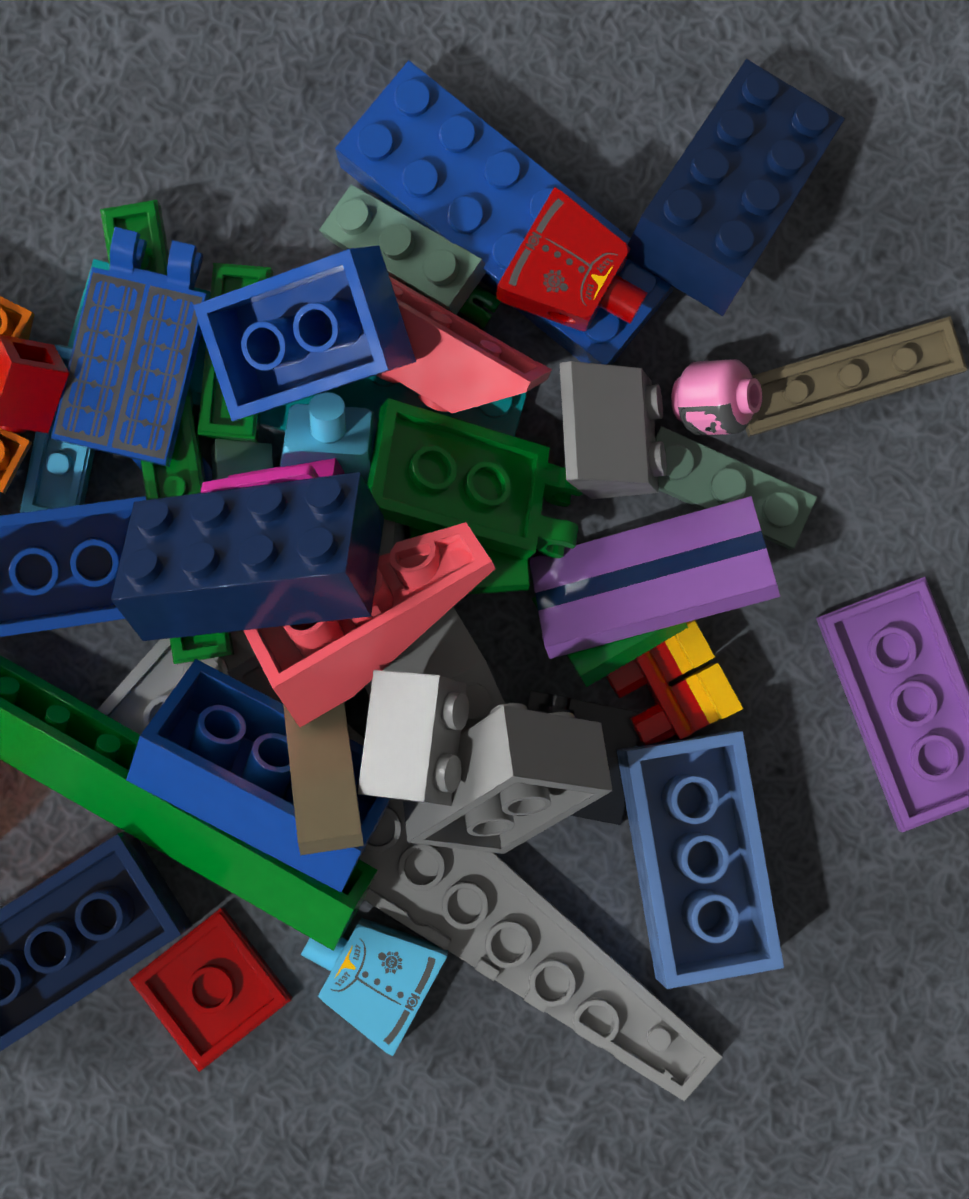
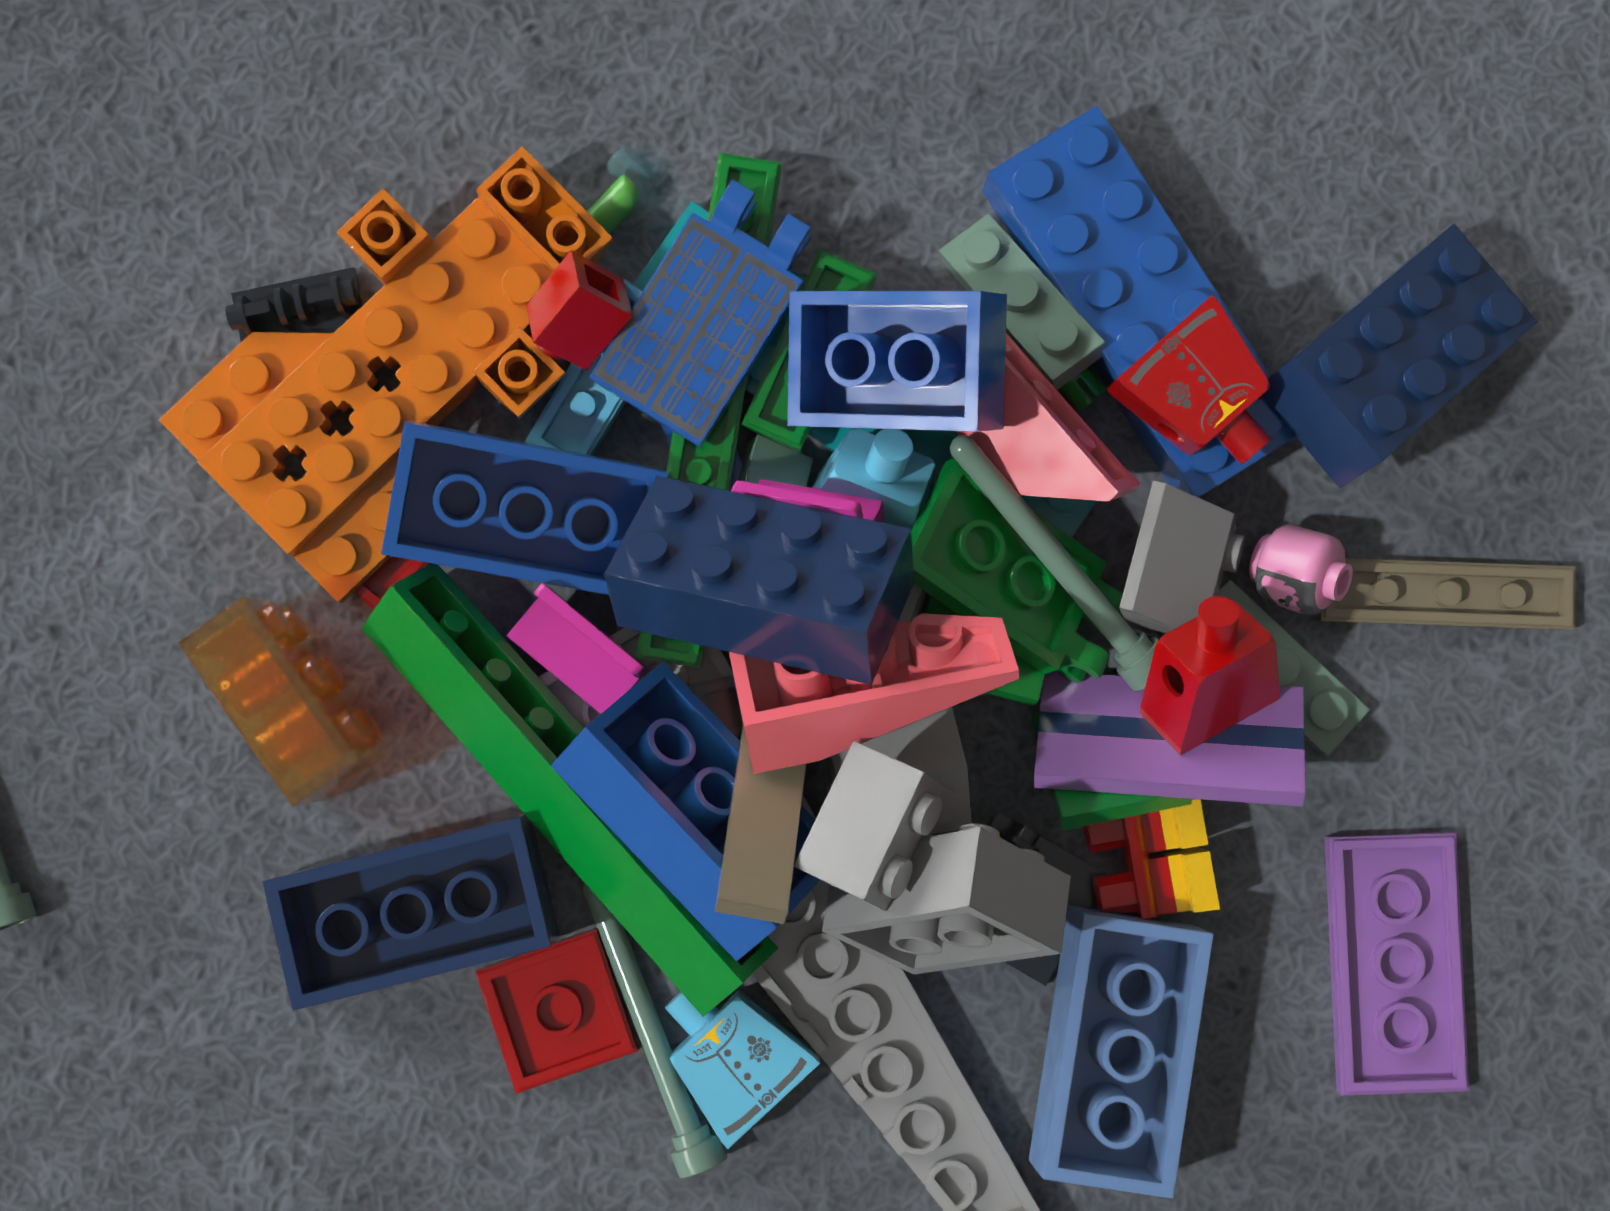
camera: 15 degrees right, 0 degrees up
(33, 272) = (625, 192): none -> arm
(117, 673) = (576, 650): none -> dark pink panel
(365, 1061) = (694, 1143): none -> sand green piece
(602, 517) = (1133, 650): none -> sand green piece
(665, 511) = (1210, 675): none -> red torso

